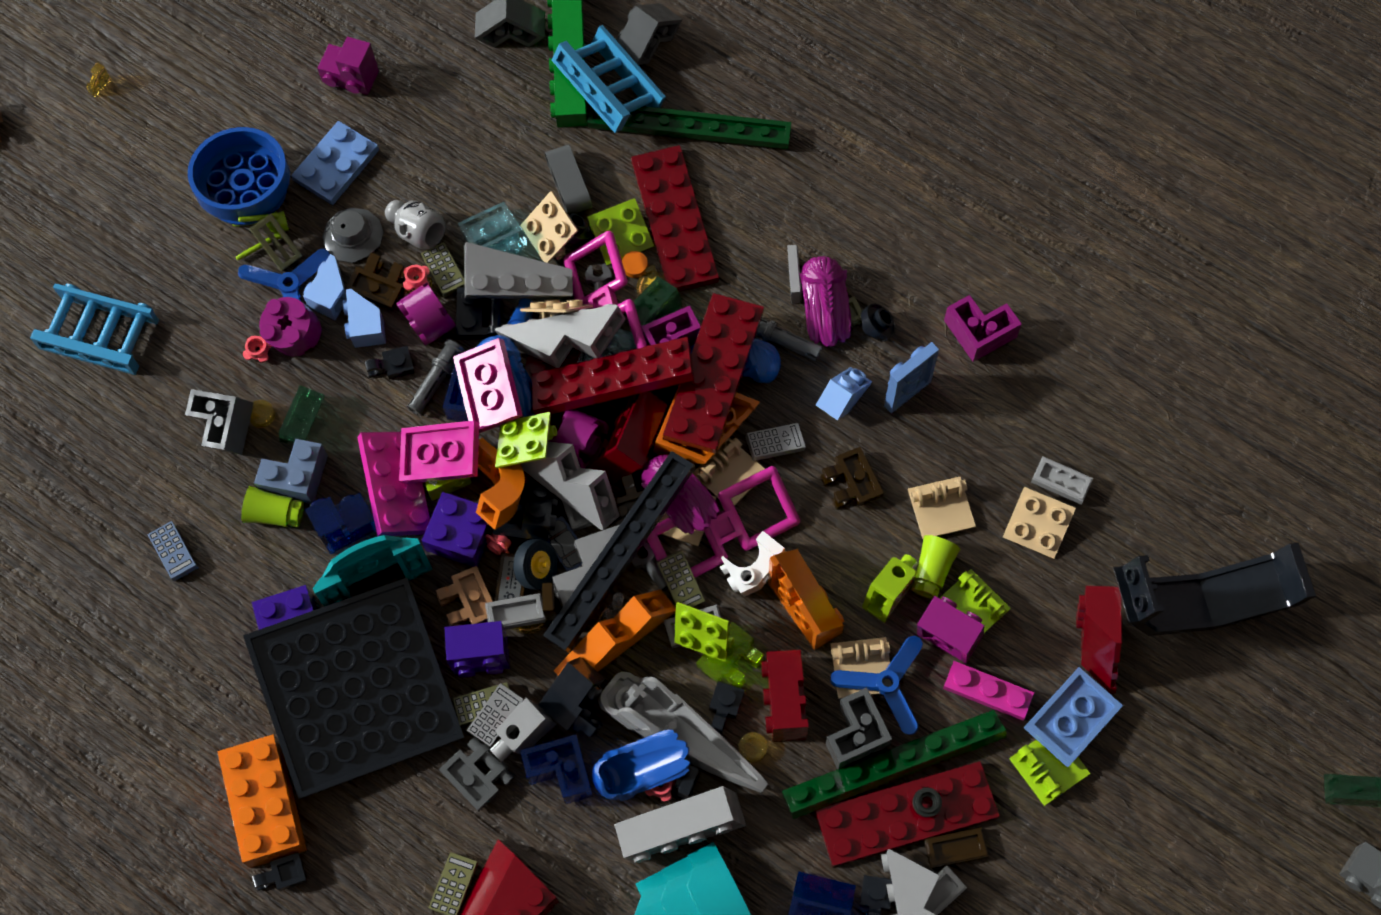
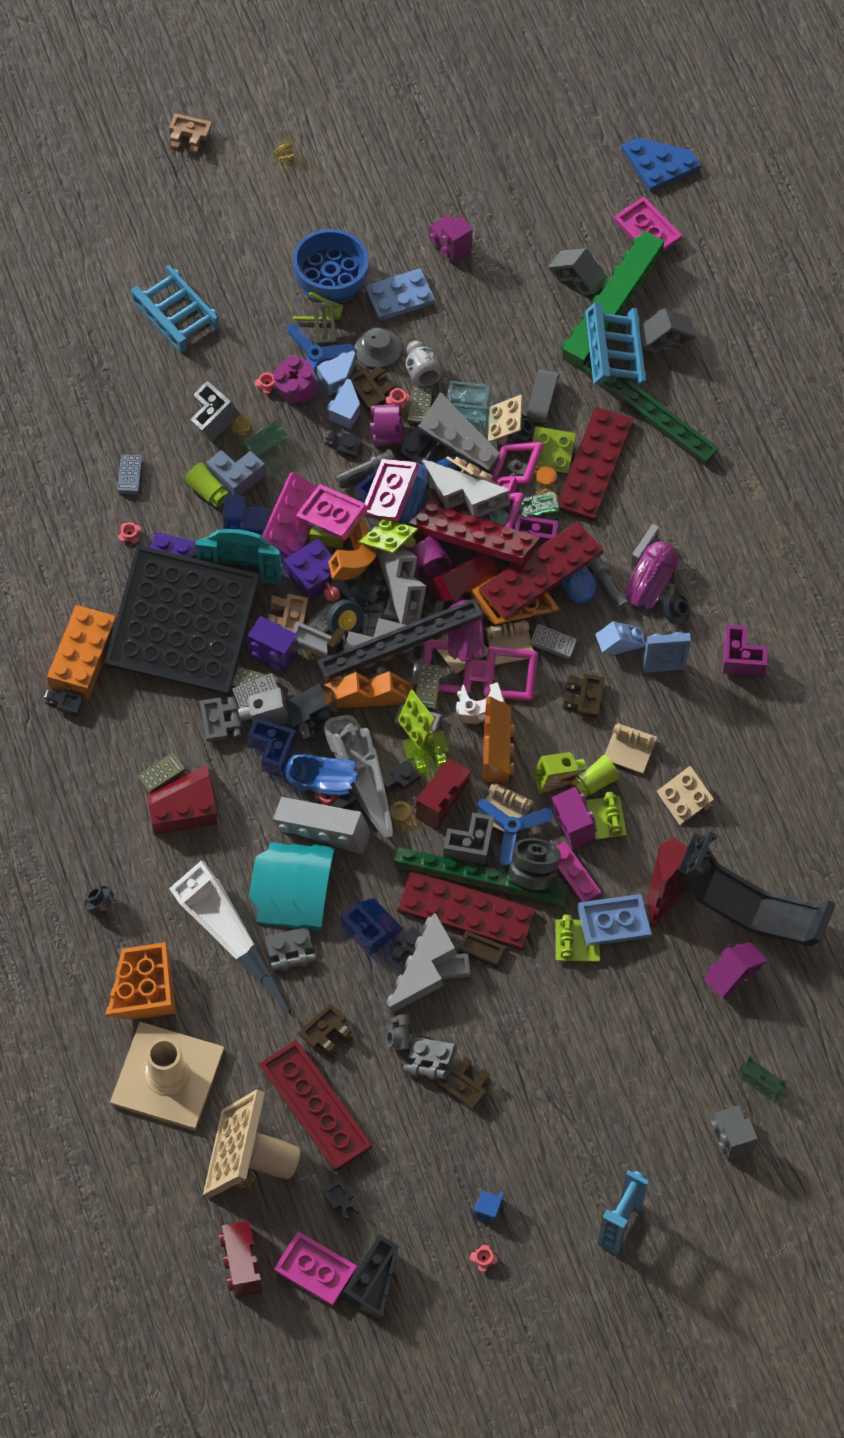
camera: 30 degrees right, 5 degrees down
(216, 613) = (129, 527): none -> coral plate
(931, 794) = (481, 901): pearl dark grey plate -> none
(948, 712) = (534, 864): none -> pearl dark grey wheel
(1062, 480) = (721, 780): light grey plate -> none
(1242, 686) = (733, 968): none -> magenta brick

